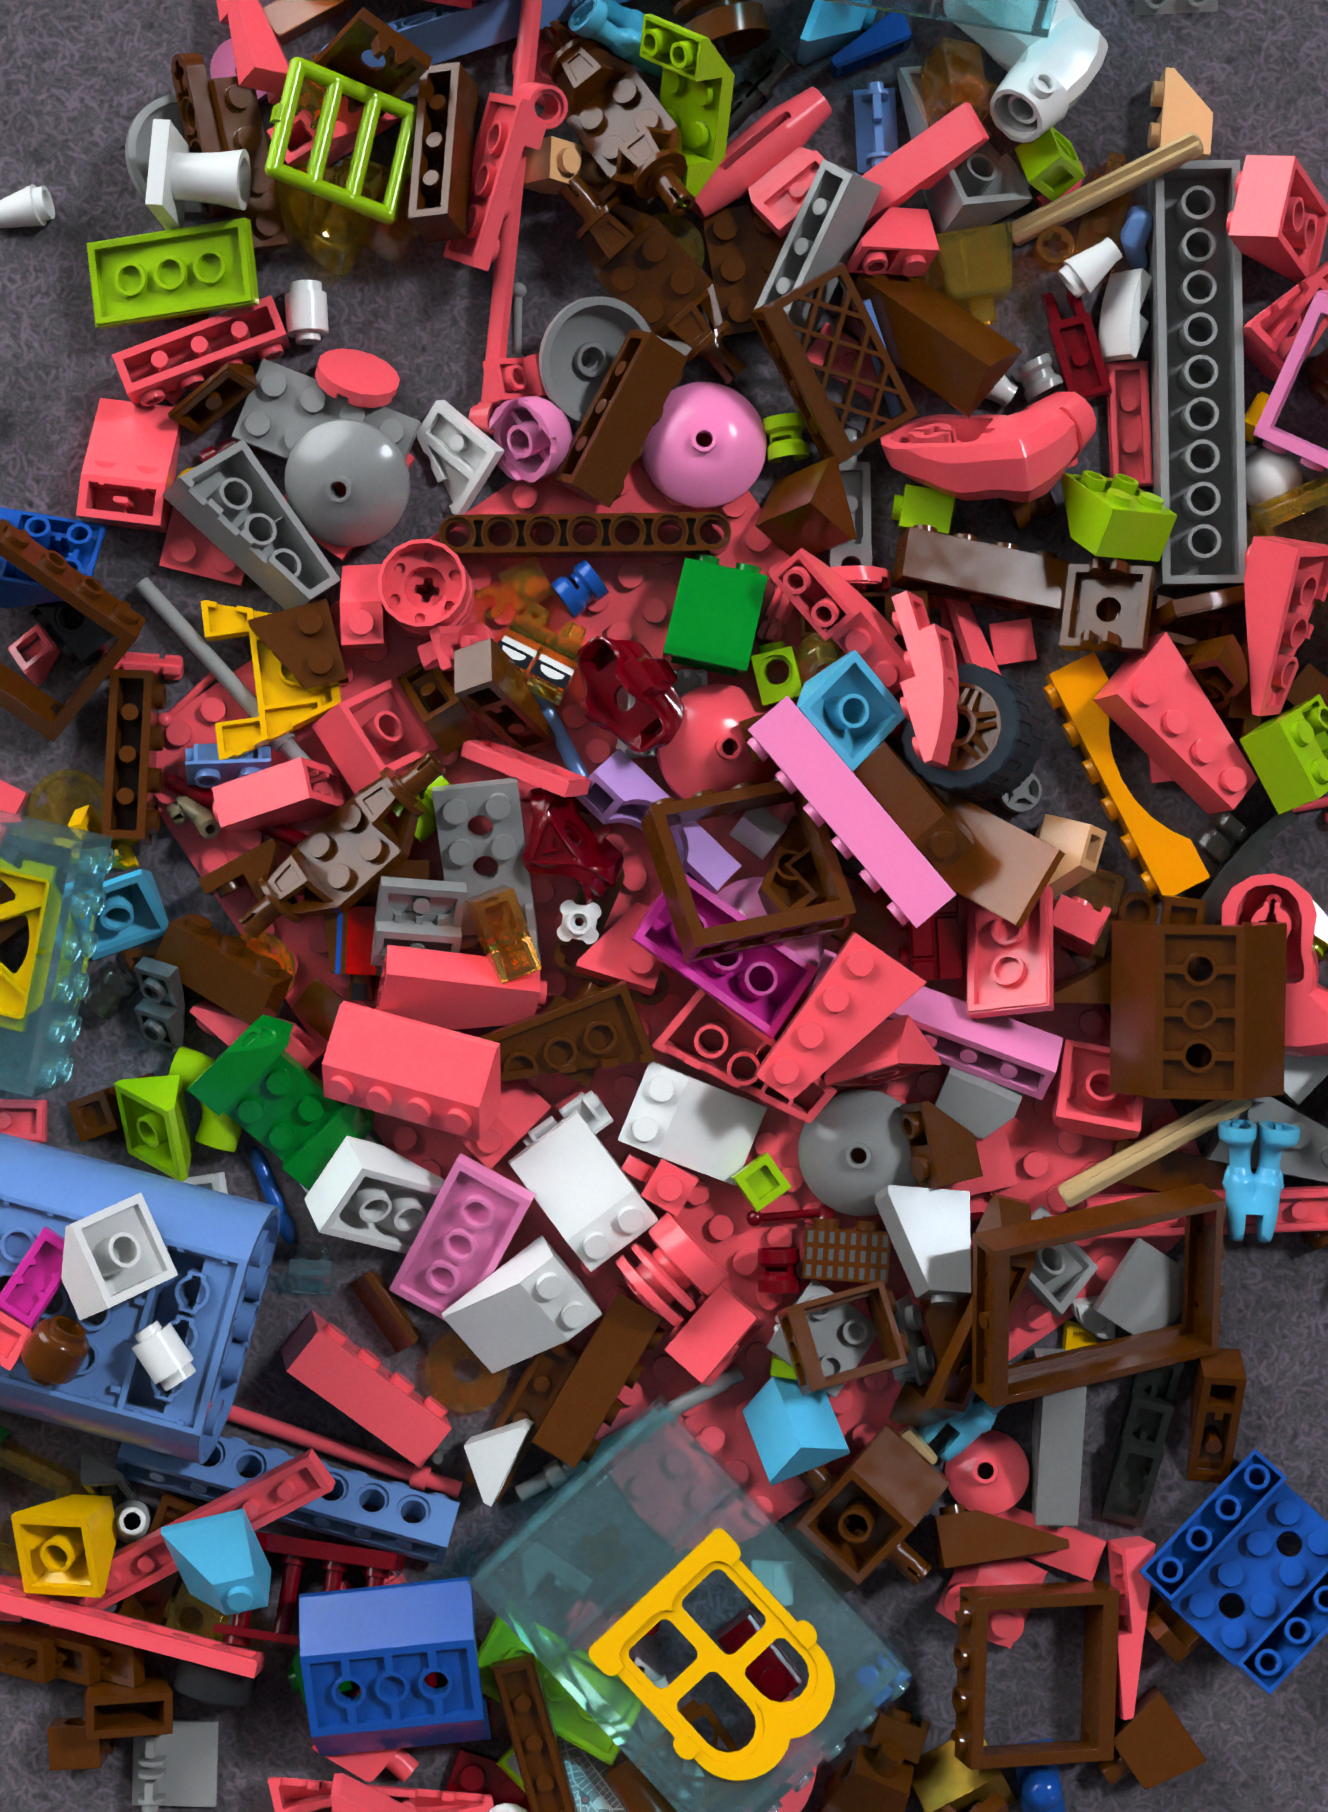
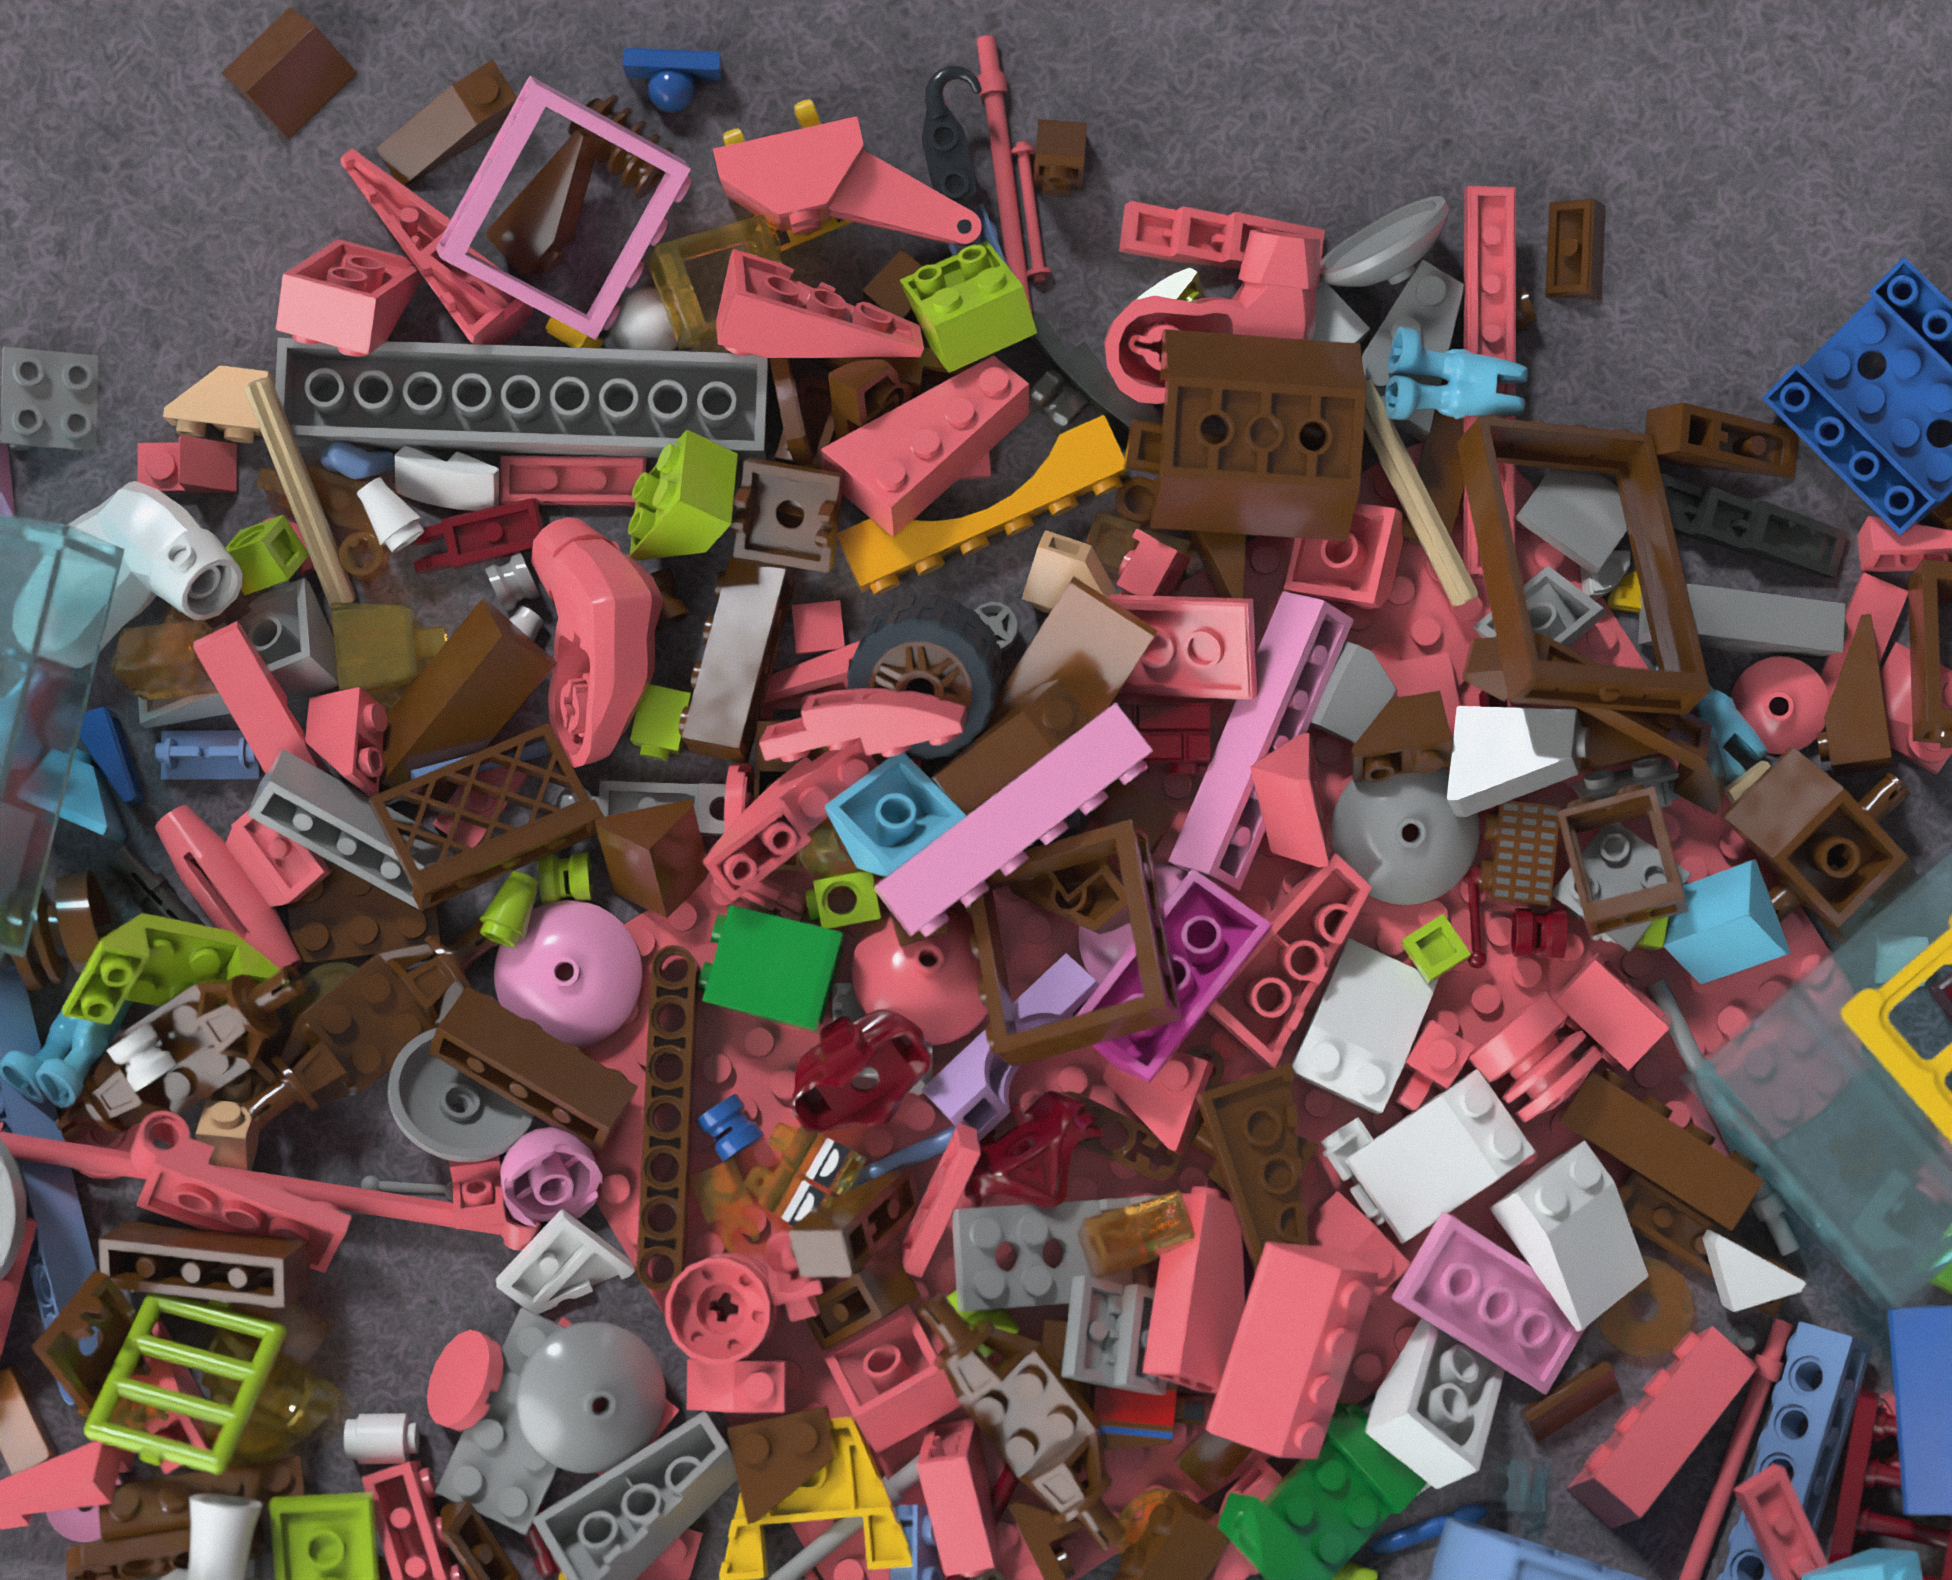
camera: 90 degrees left, 5 degrees down
(570, 930) = (1134, 1136): white plate -> none
(611, 85) = (141, 1057): none -> white wheel
(754, 391) = (510, 911): none -> lime cone
(758, 831) = (1026, 931): white slope -> none
(842, 1008) = (1246, 845): coral wedge -> none
(1124, 94) = (188, 466): none -> coral slope

